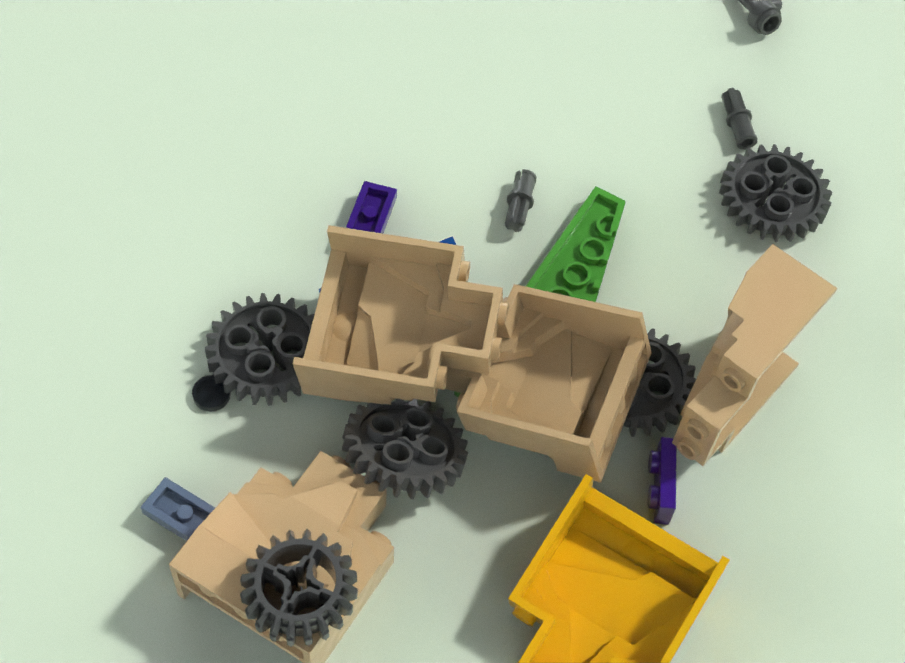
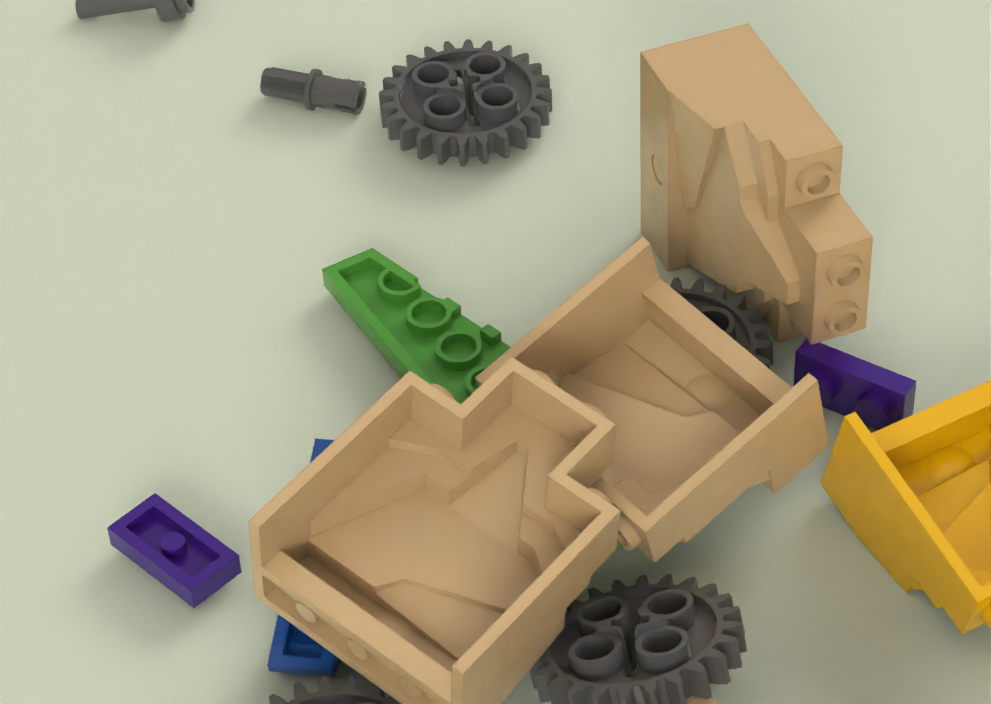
camera: 55 degrees left, 15 degrees down
(520, 200) = (280, 364): dark grey axle -> none

